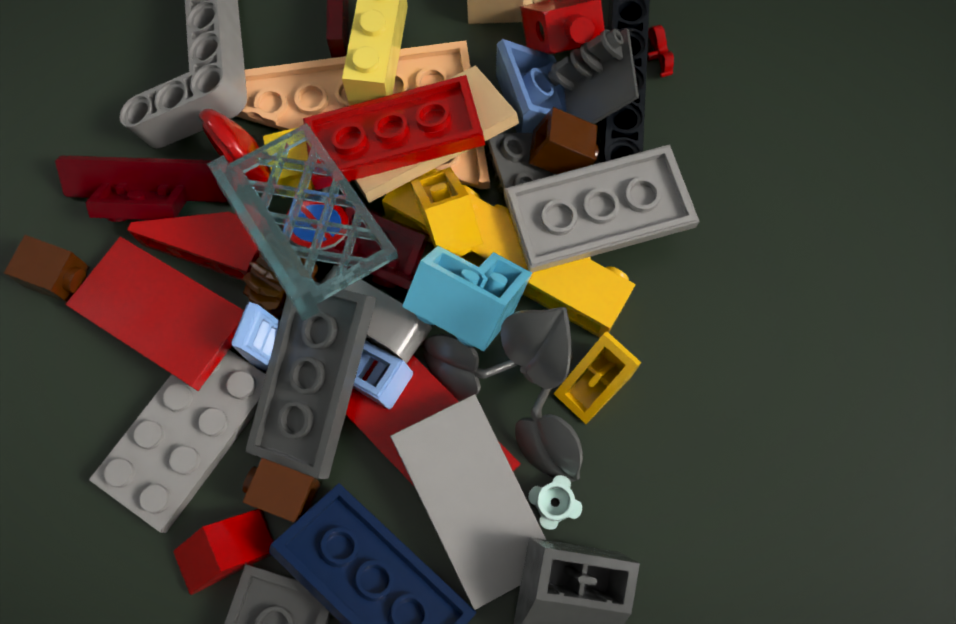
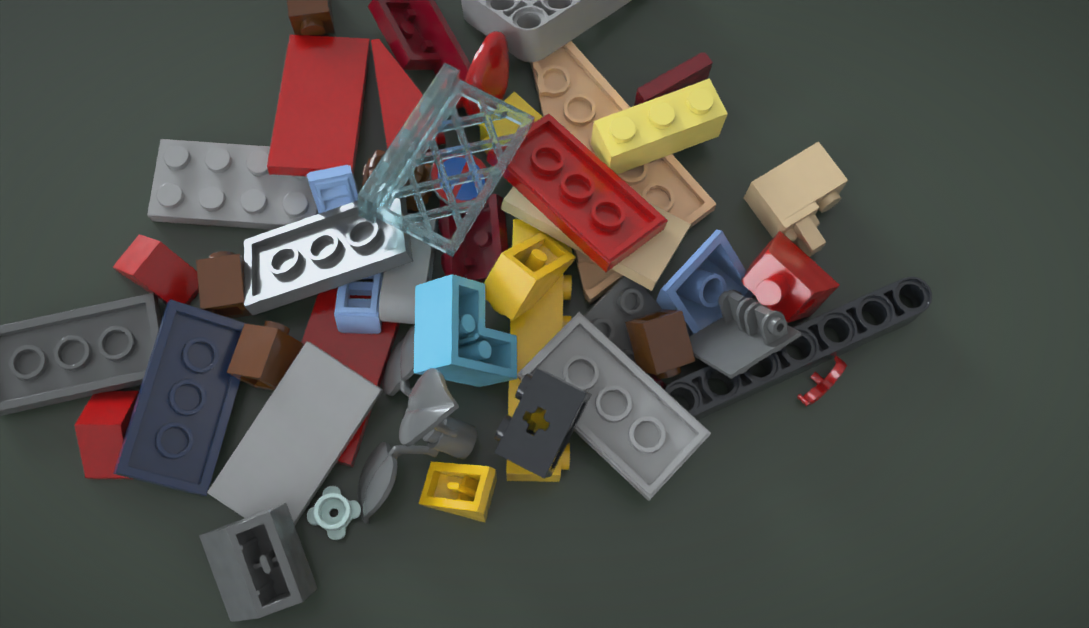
camera: 55 degrees right, 0 degrees up
(375, 486) = (264, 354): none -> reddish brown brick
(610, 282) = (541, 449): none -> black brick

